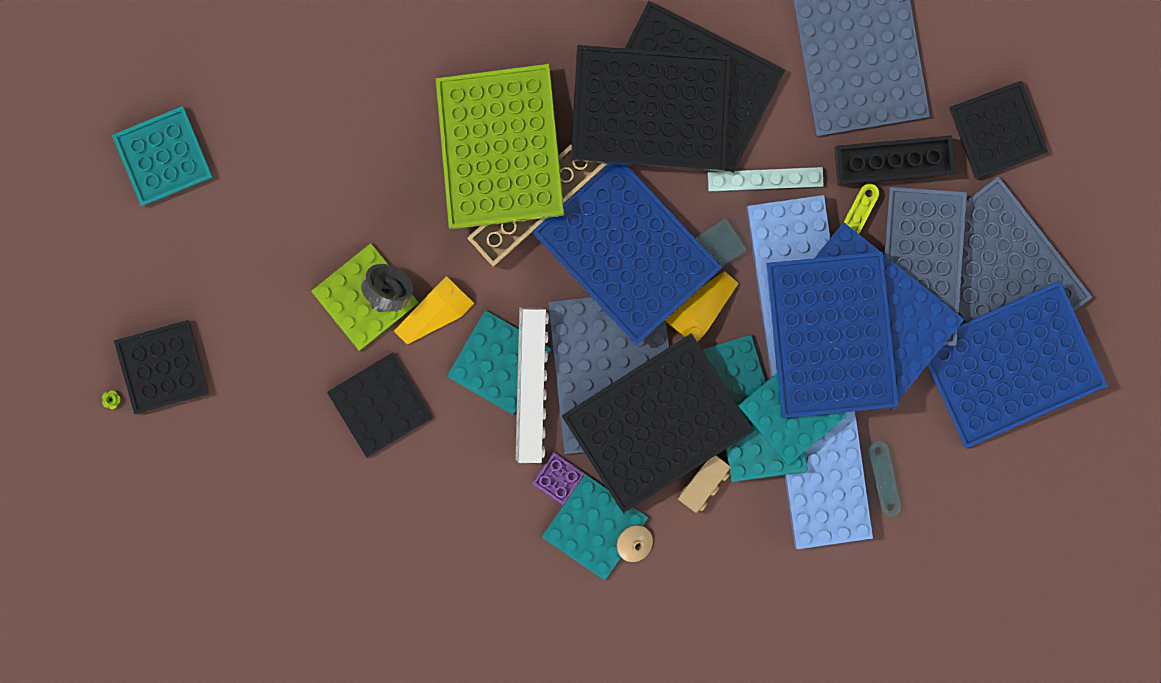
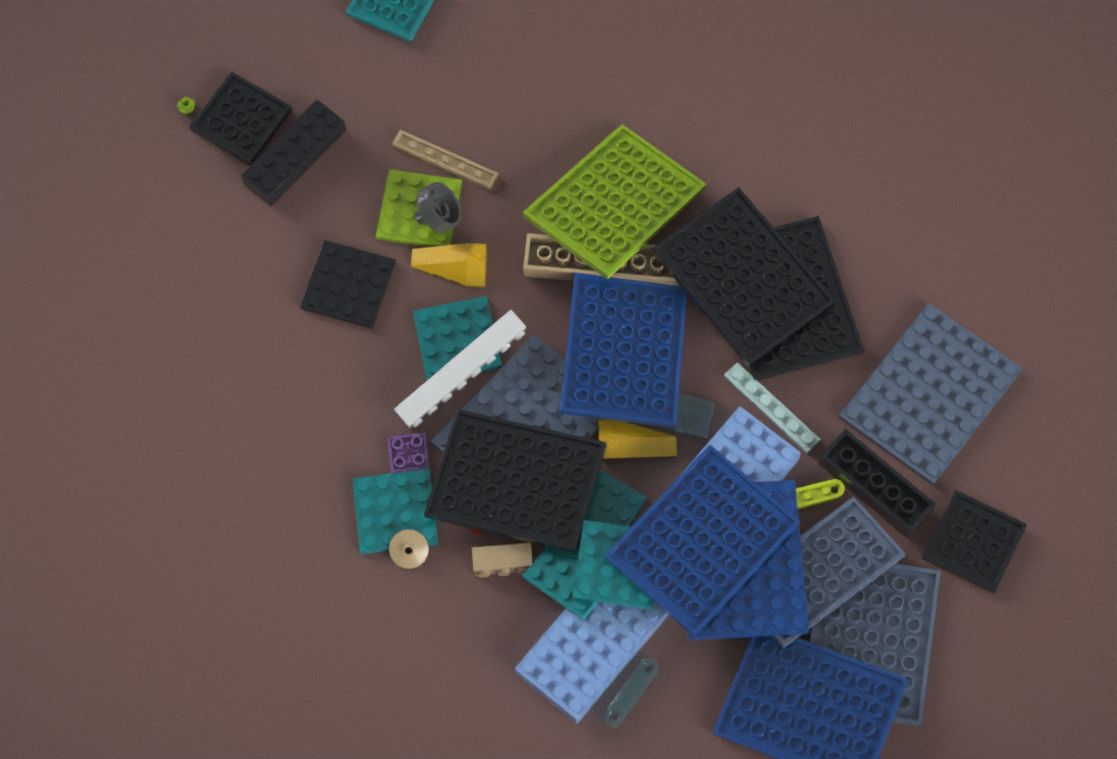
camera: 50 degrees right, 20 degrees down
(231, 352) = (293, 152): none -> black brick
(340, 240) = (445, 160): none -> tan tile

